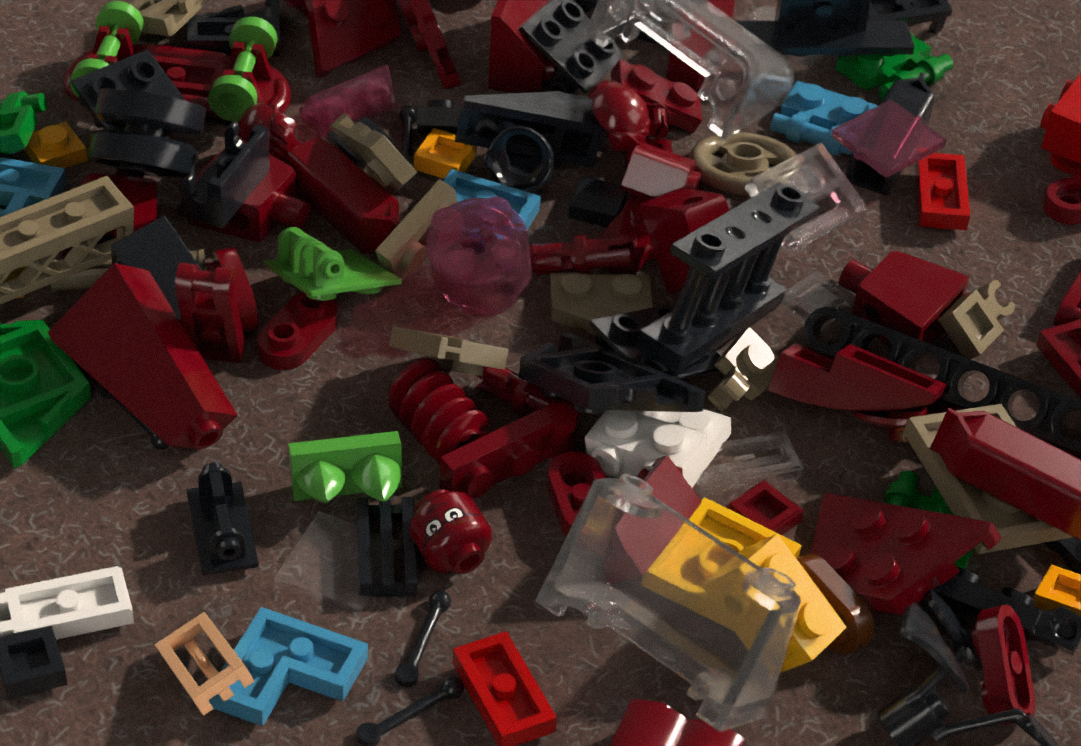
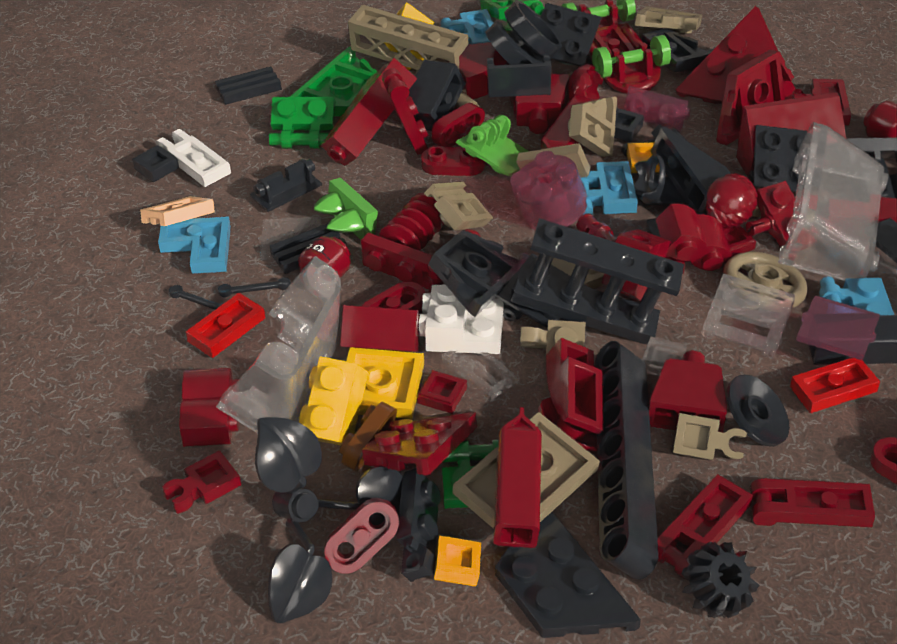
camera: 70 degrees right, 0 degrees up
(65, 438) = (301, 114): none -> green plate
(959, 261) = (758, 410): none -> black dish

